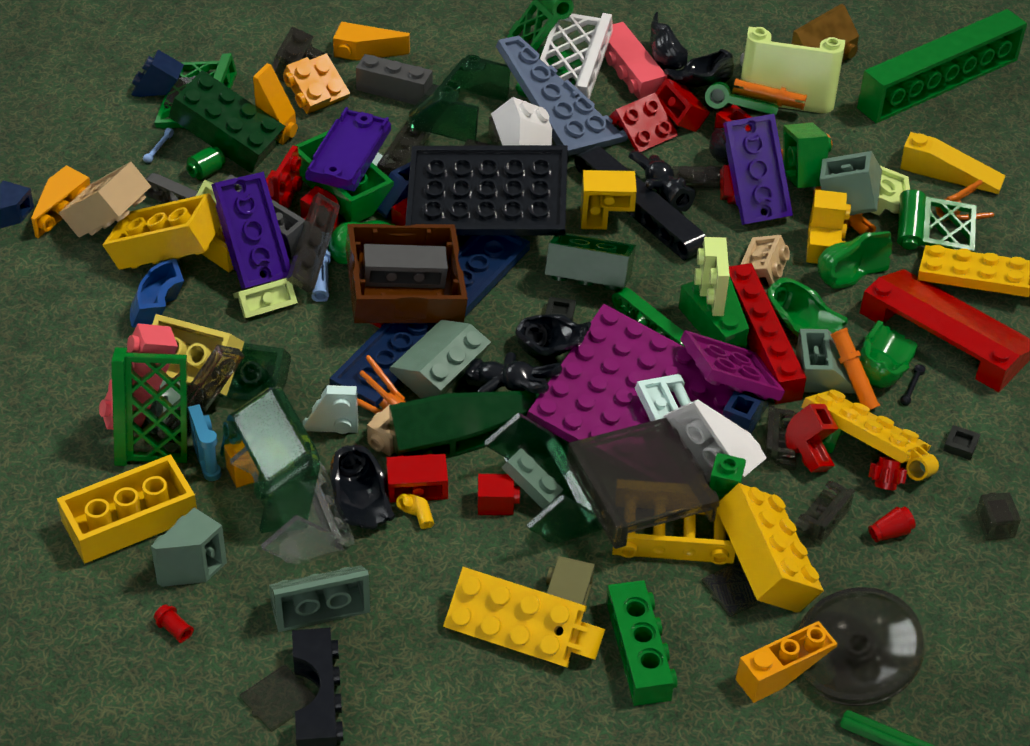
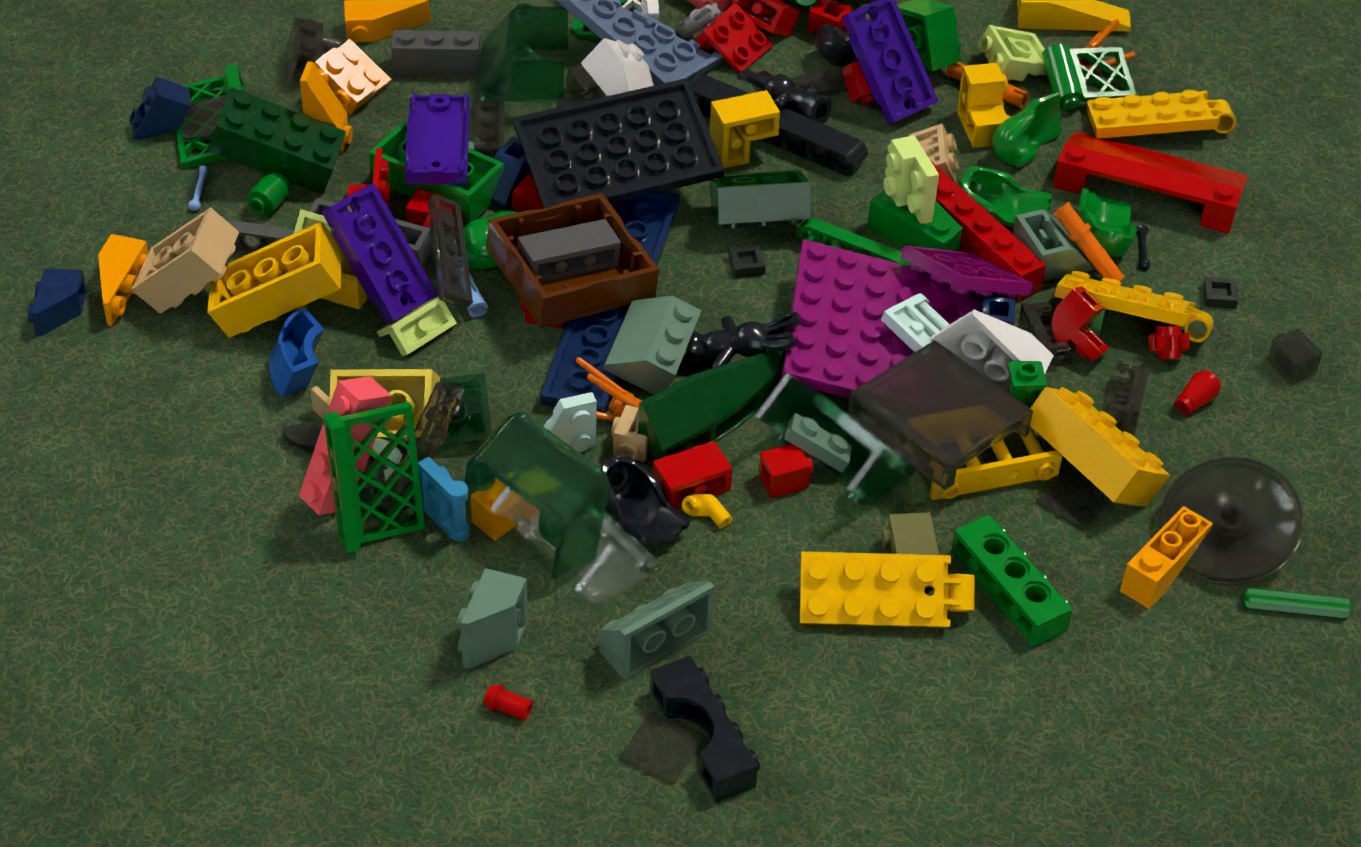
camera: 20 degrees left, 0 degrees up
(126, 508) = (394, 594): yellow brick -> none
(550, 335) = (760, 287): black hair -> none
(619, 99) = (698, 20): none -> light grey axle
(857, 176) = (994, 42): sand green slope -> none

